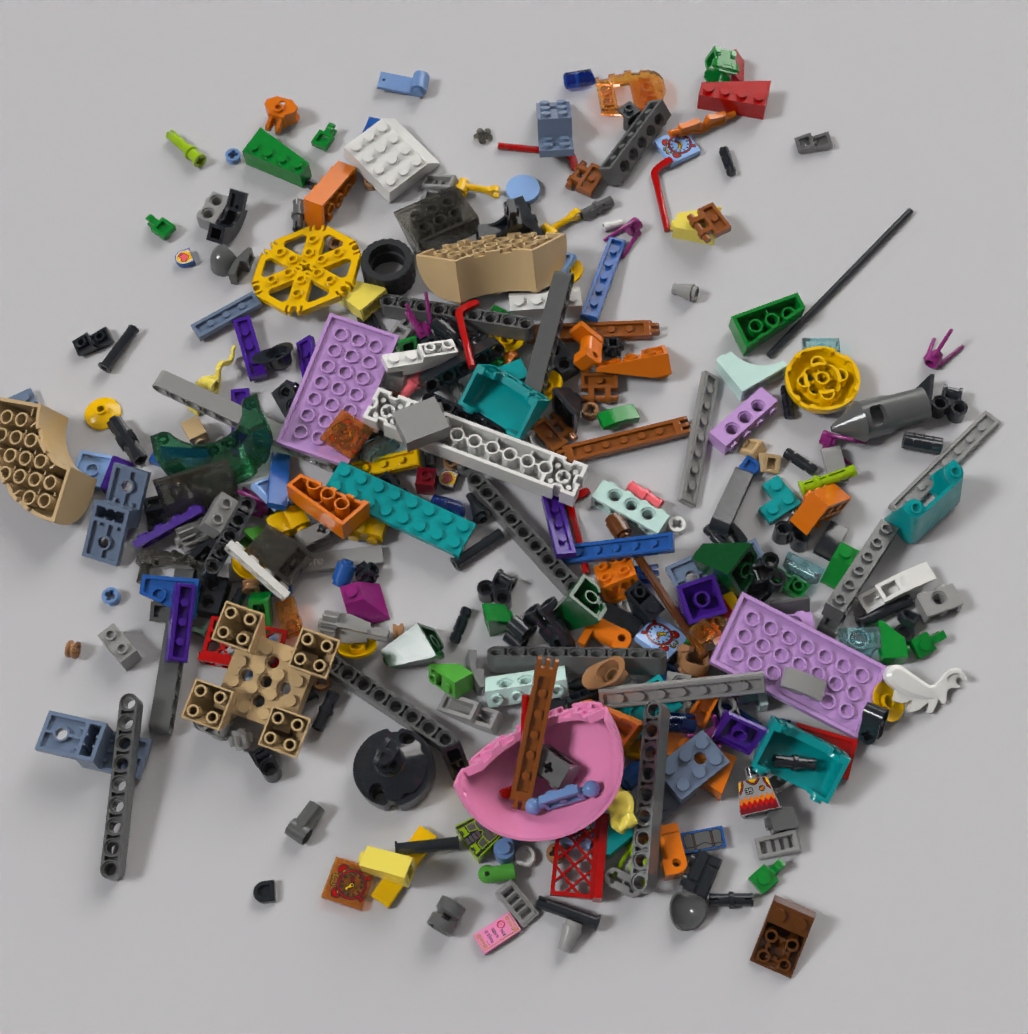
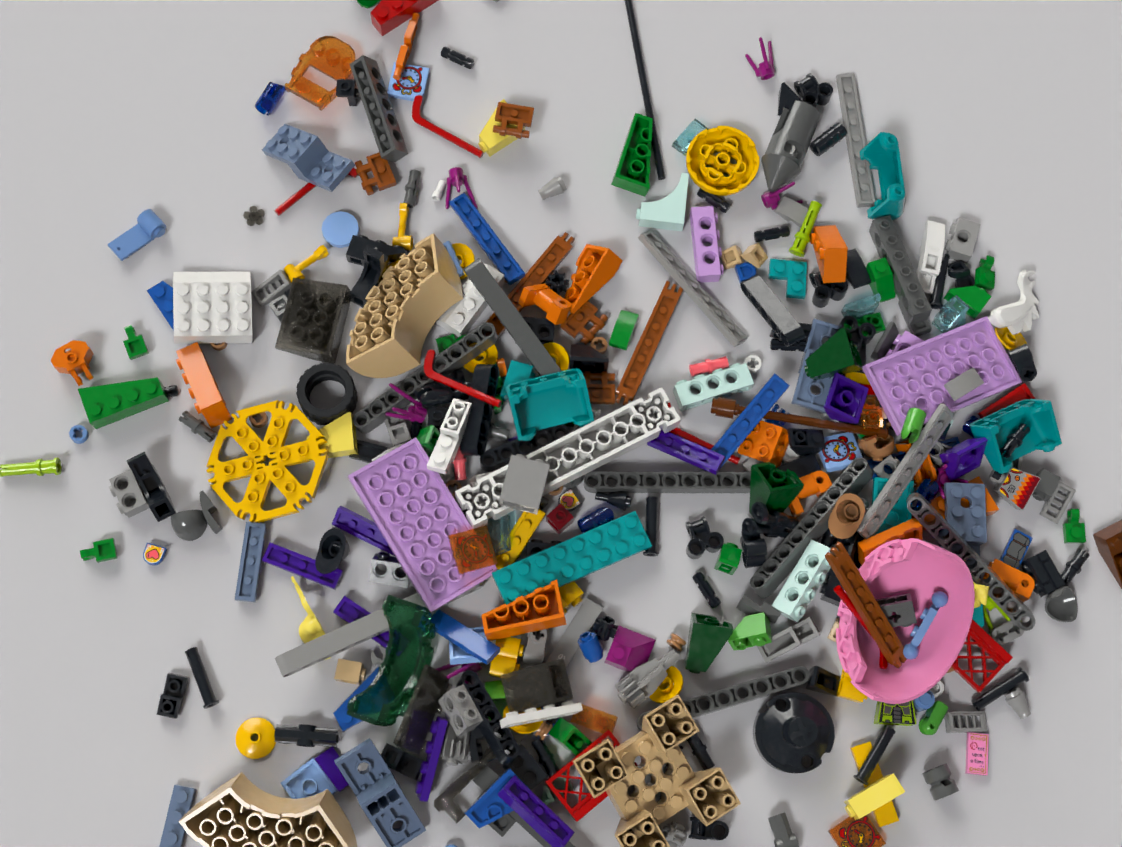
camera: 60 degrees left, 10 degrees up
(728, 663) = (914, 423): none -> bright green piece

